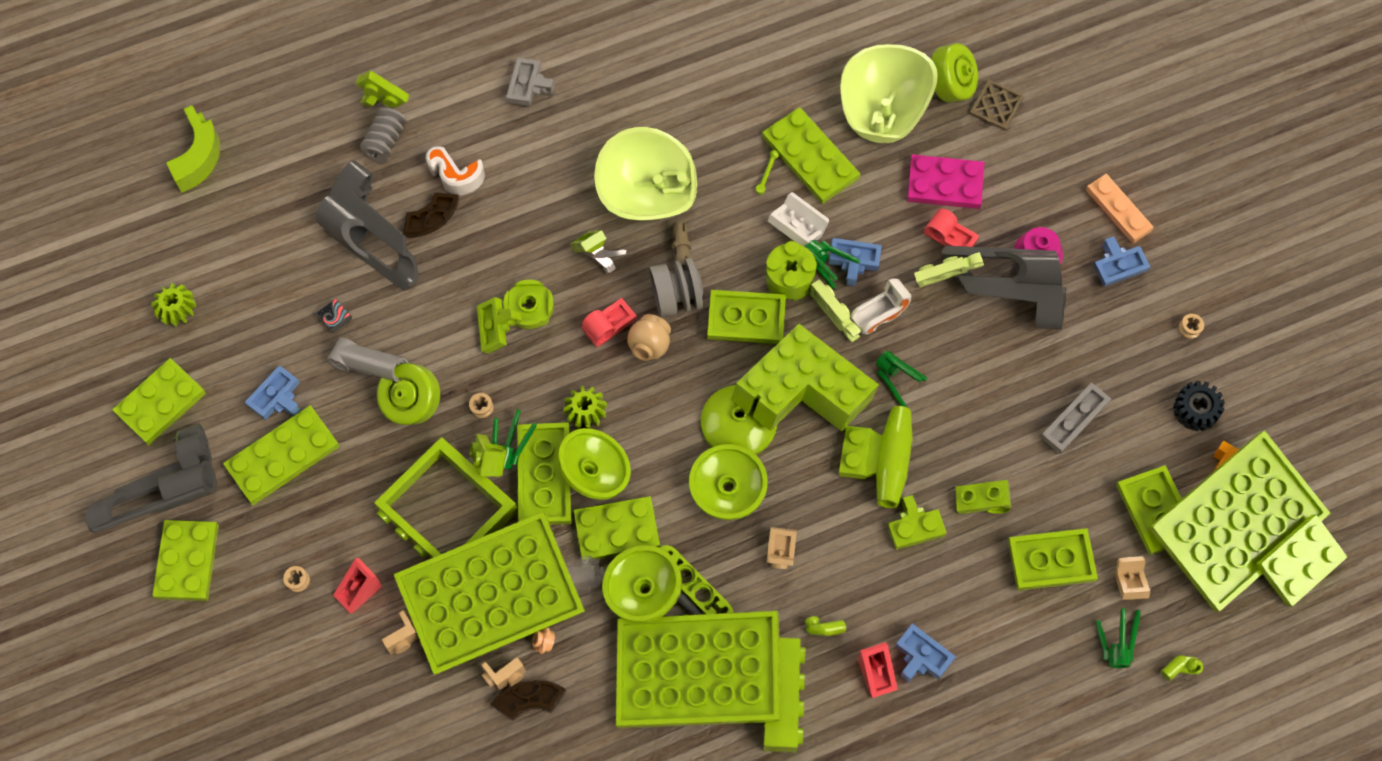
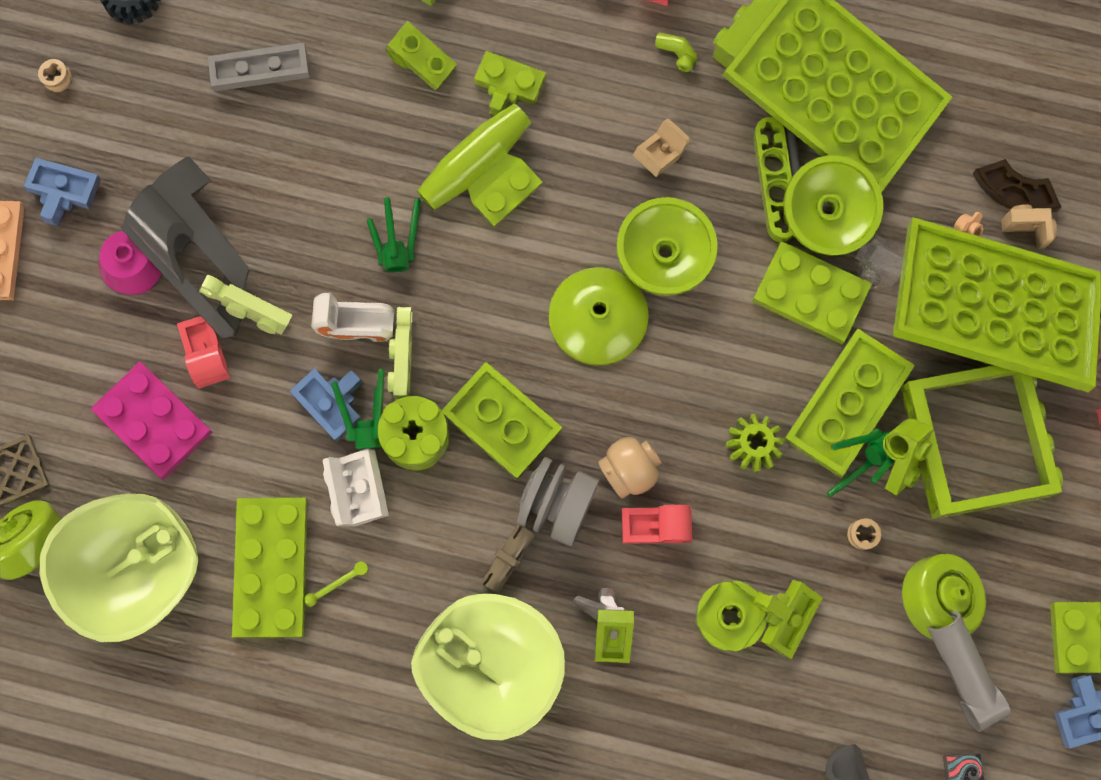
camera: 145 degrees left, 10 degrees up
(599, 456) = (779, 357): lime dish -> none
(804, 371) = (496, 306): lime piece -> none

